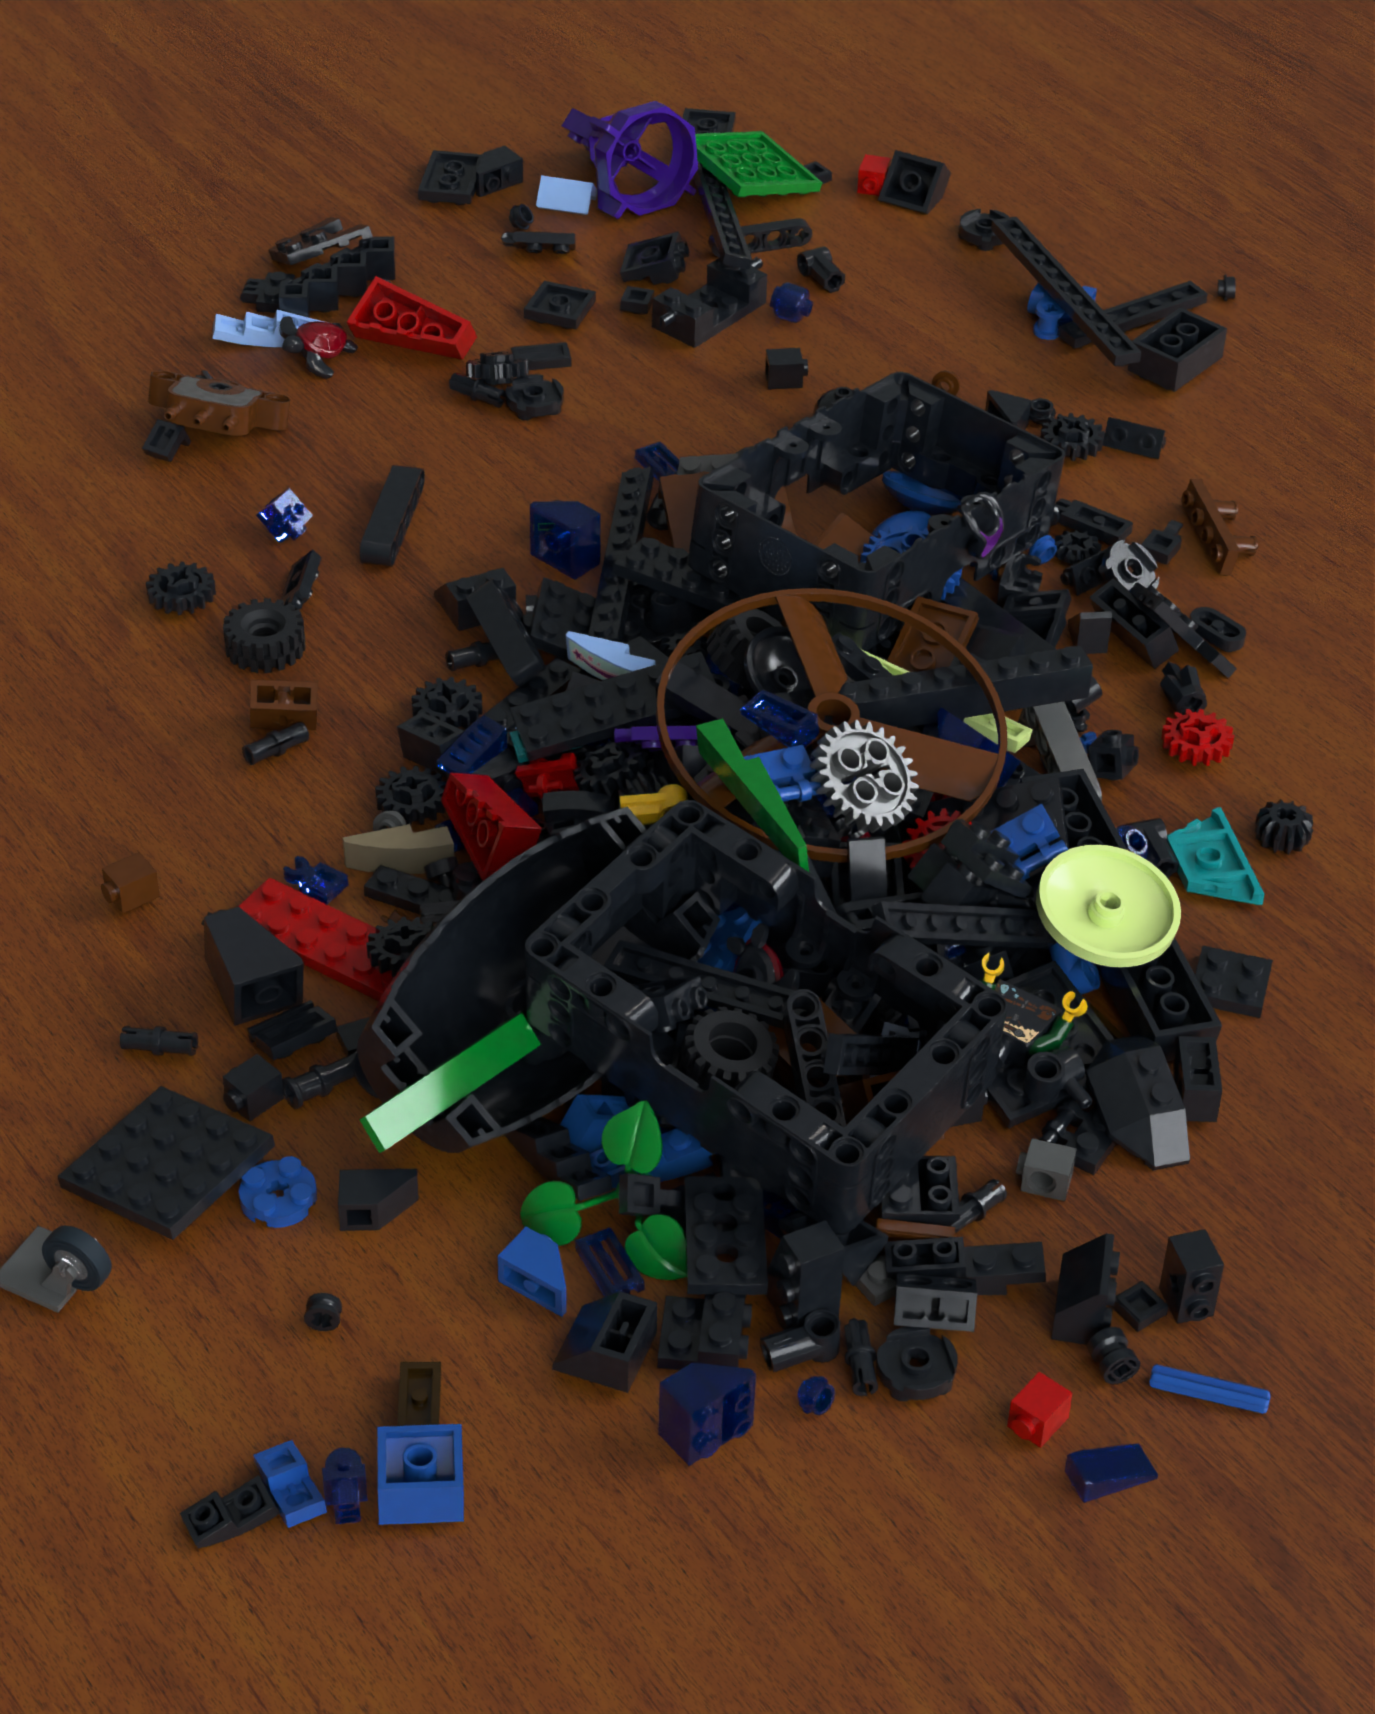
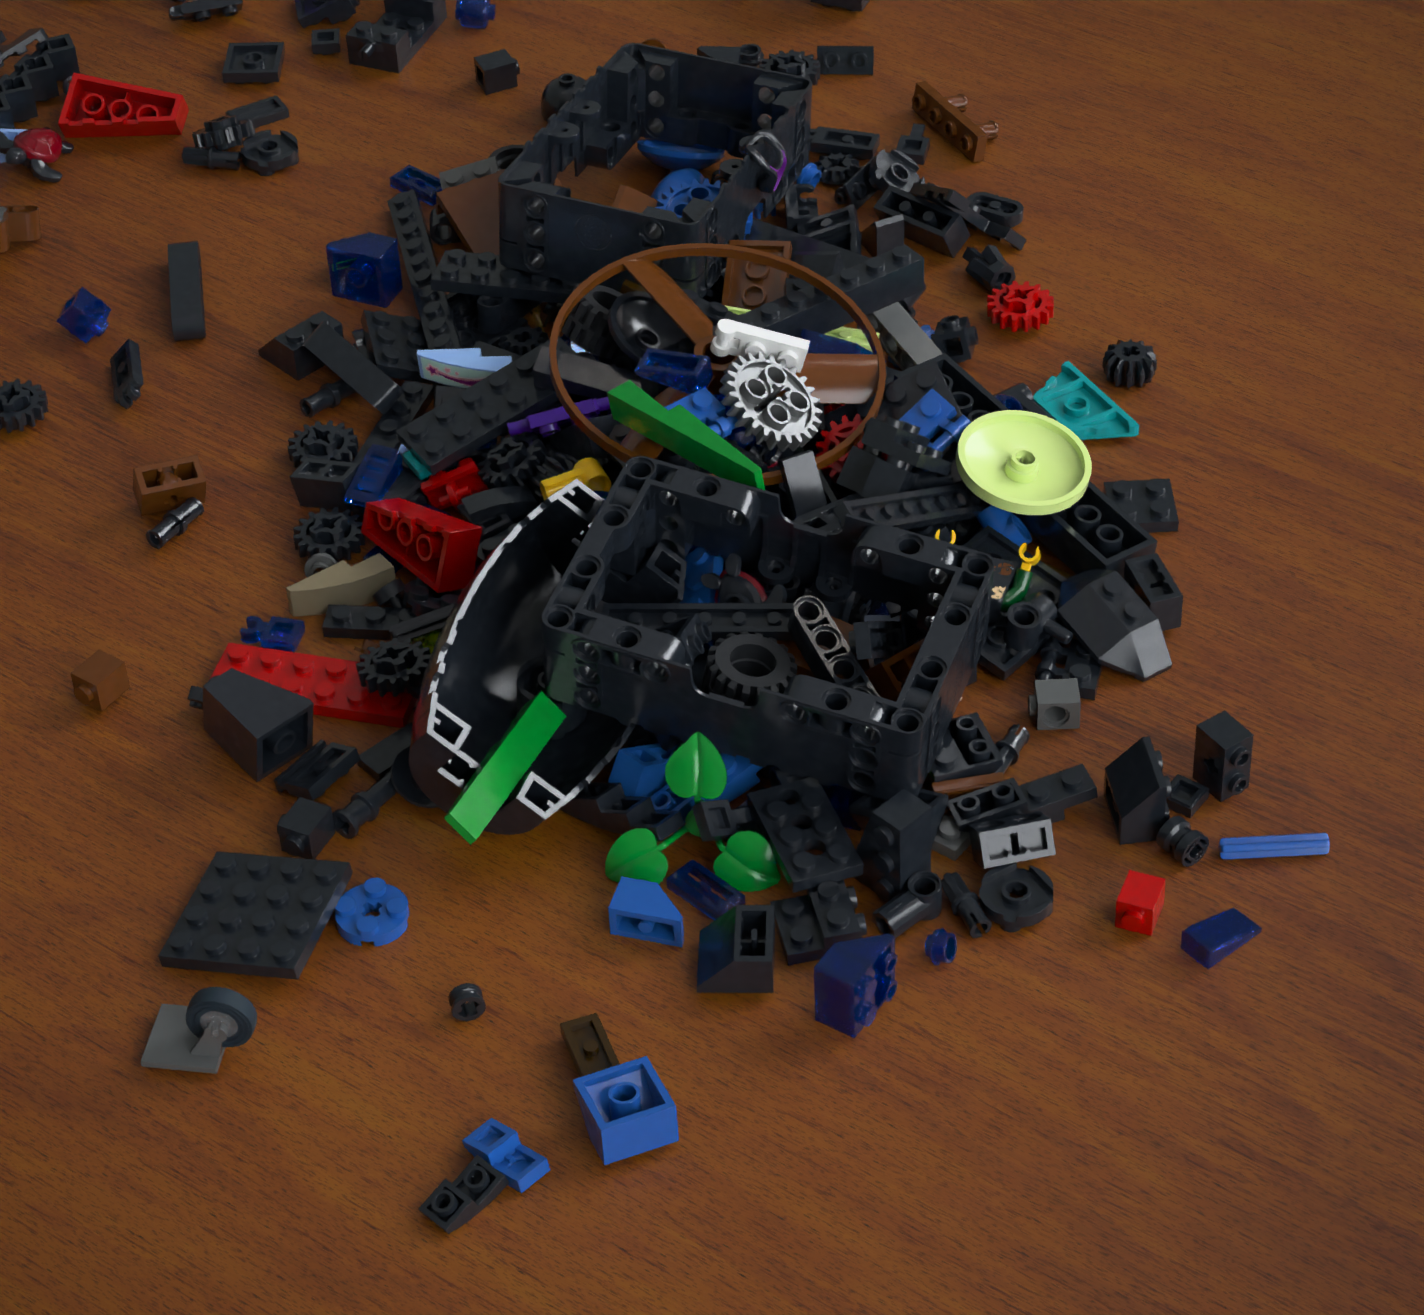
camera: 15 degrees left, 0 degrees up
(159, 1040) = (195, 812): black pin -> none
(264, 635) = (116, 428): black tyre -> none
(345, 1484) = (563, 1138): clear blue hips -> none
(375, 1196) = (465, 891): black slope -> none
(860, 705) = (758, 339): none -> white plate

